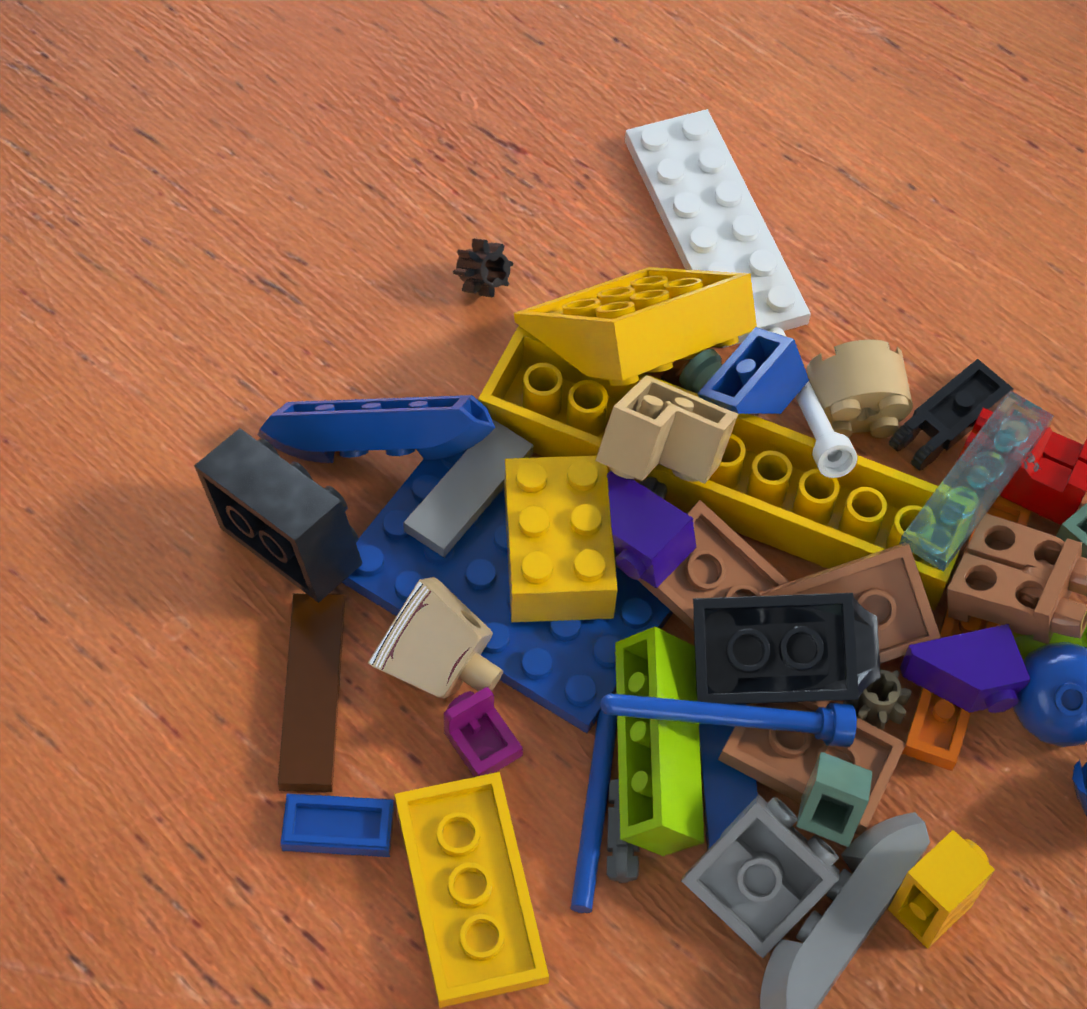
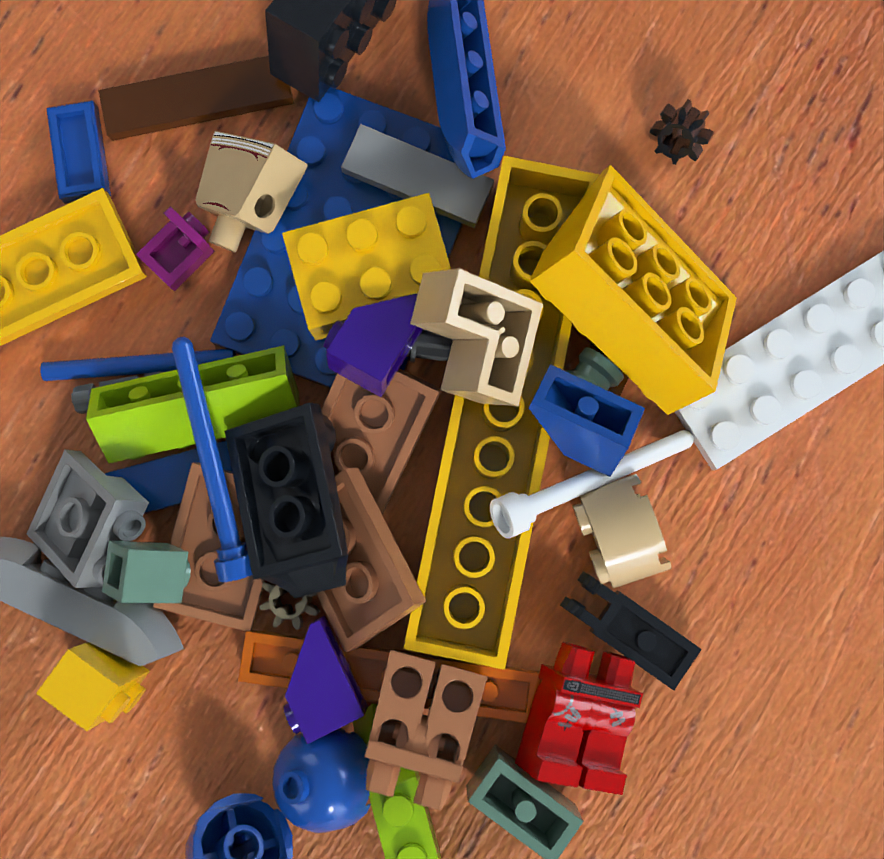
camera: 80 degrees right, 25 degrees up
(976, 480) = (516, 666): clear light blue plate -> none

